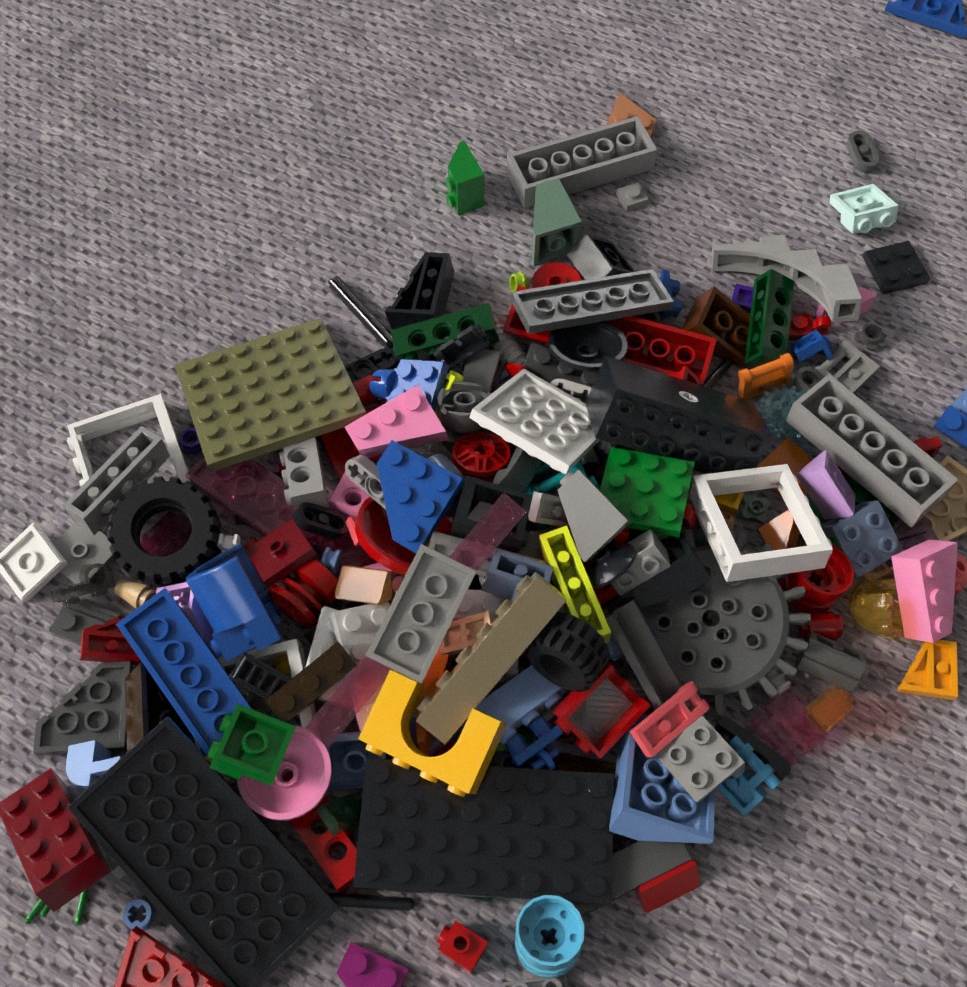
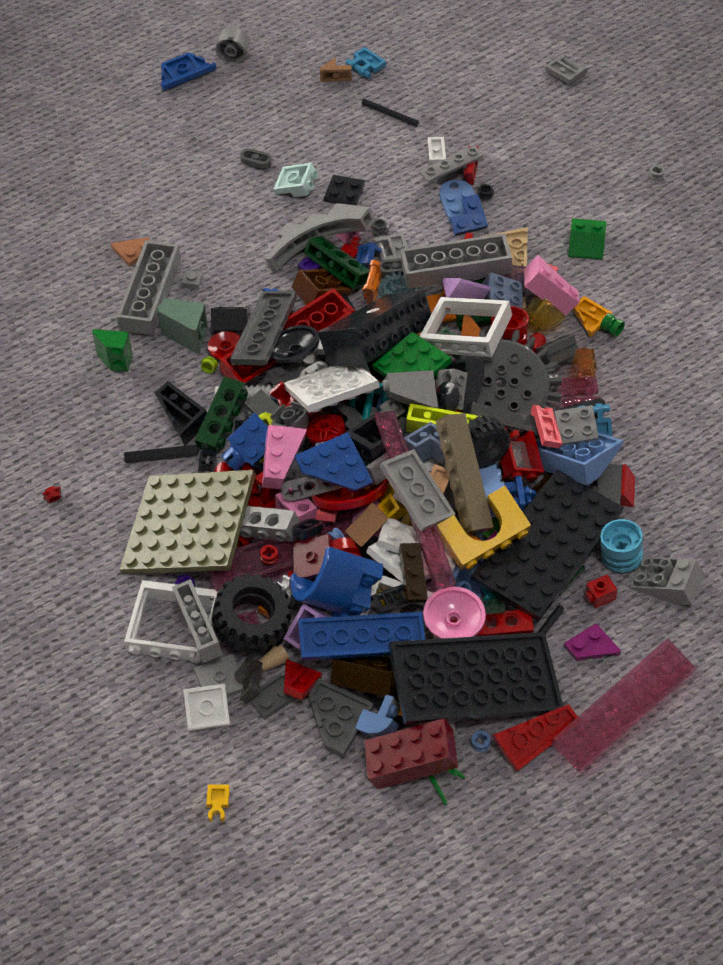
camera: 55 degrees left, 10 degrees down
(237, 244) = (52, 494): none -> red plate
(250, 745) = (431, 615): green plate -> none
(262, 509) = (269, 549): none -> red bush
(468, 343) = (243, 404): black hinge -> none
(937, 709) = (611, 324): none -> green wheel

